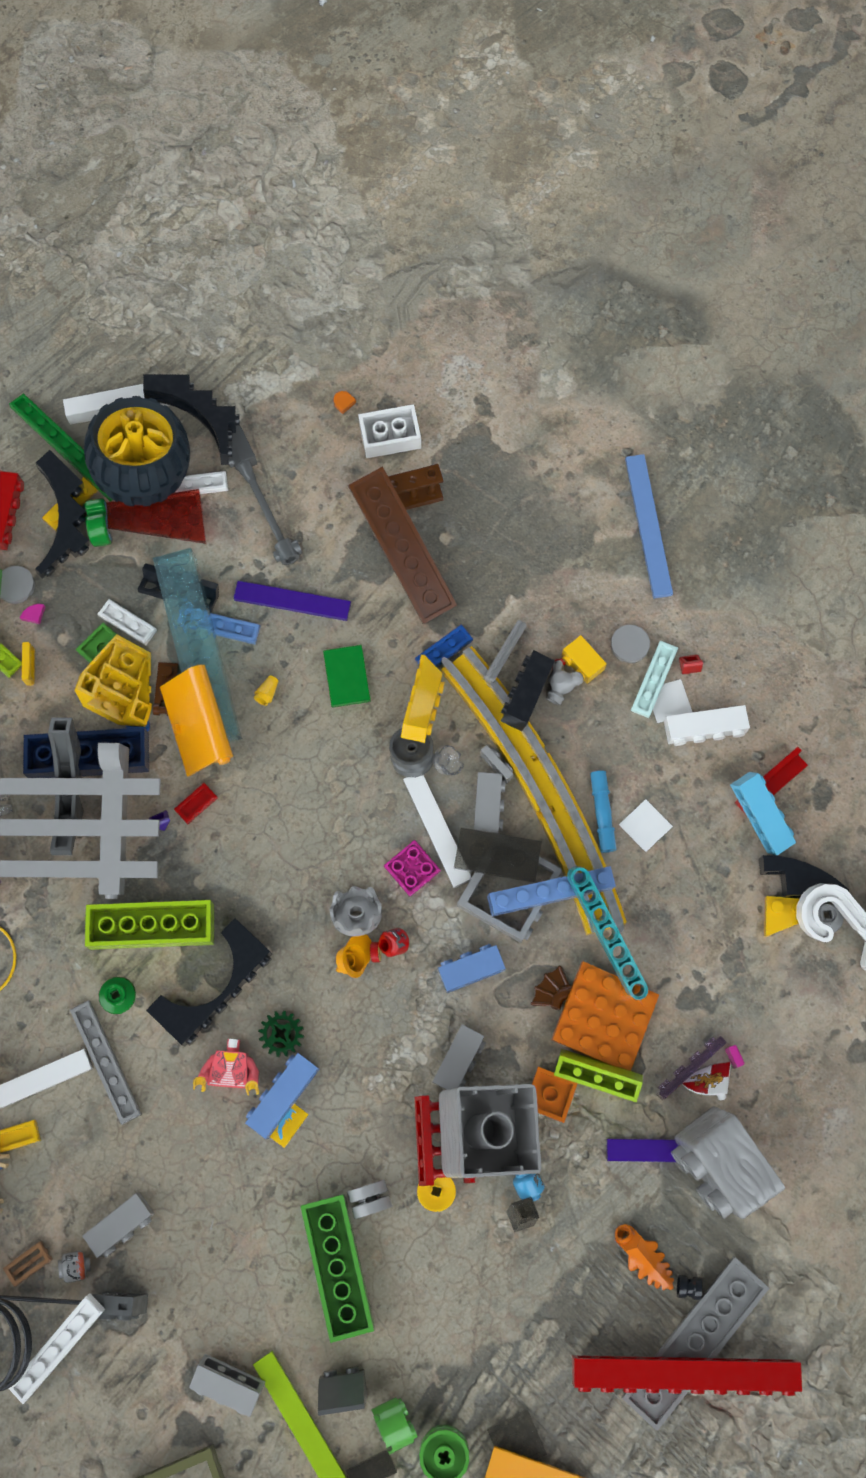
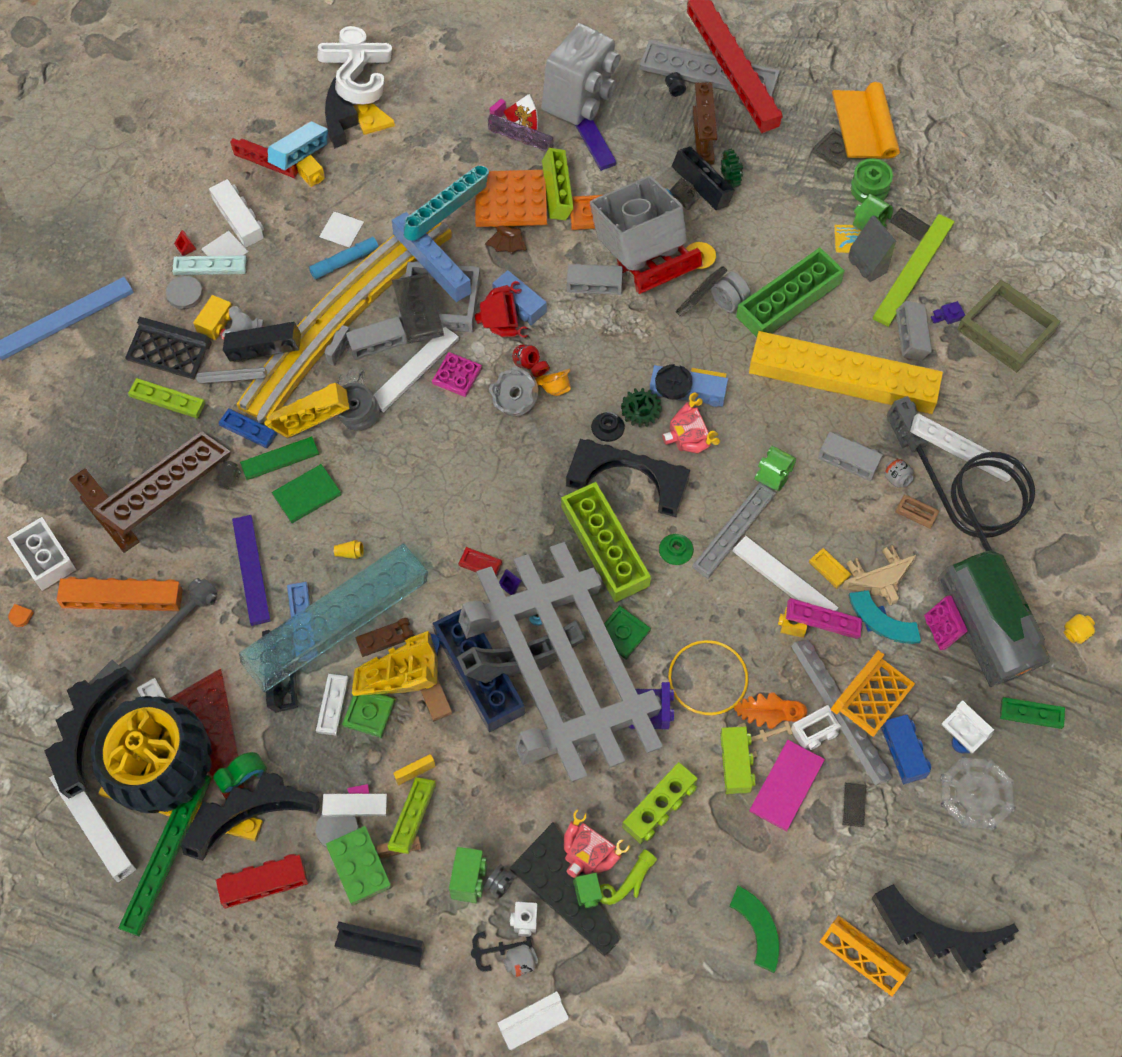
camera: 115 degrees left, 10 degrees down
(23, 603) = (354, 805): none -> white tile
(59, 902) = (625, 631): none -> green tile
(75, 710) = (436, 702): none -> medium nougat tile
(138, 1134) = (775, 468): none -> bright green brick
(196, 720) = (407, 581): light orange door -> none
(213, 1278) = (844, 371): none -> yellow brick
(234, 1446) = (950, 313): none -> dark purple plate
(286, 1077) = (673, 382): none -> black tile
(289, 999) = (605, 432): none -> black piece
(320, 484) = (119, 594): none -> orange brick
(384, 1166) = (702, 289): none -> clear smoke tile
(387, 1383) = (845, 237): none -> yellow sticker
(396, 666) = (279, 458): none -> green tile
(398, 611) = (226, 474): none -> clear smoke head
(457, 937) = (499, 312): none -> red torso
(510, 587) = (166, 398): none -> lime plate
(531, 1287) = (731, 168): none -> dark green gear
(535, 1247) = (703, 177): none -> black brick
(581, 615) = (175, 334): none -> black fence
(607, 1287) = (704, 121): none -> reddish brown fence
(643, 1257) = (670, 117): orange plant -> none
(730, 819) = (310, 171): none -> yellow brick

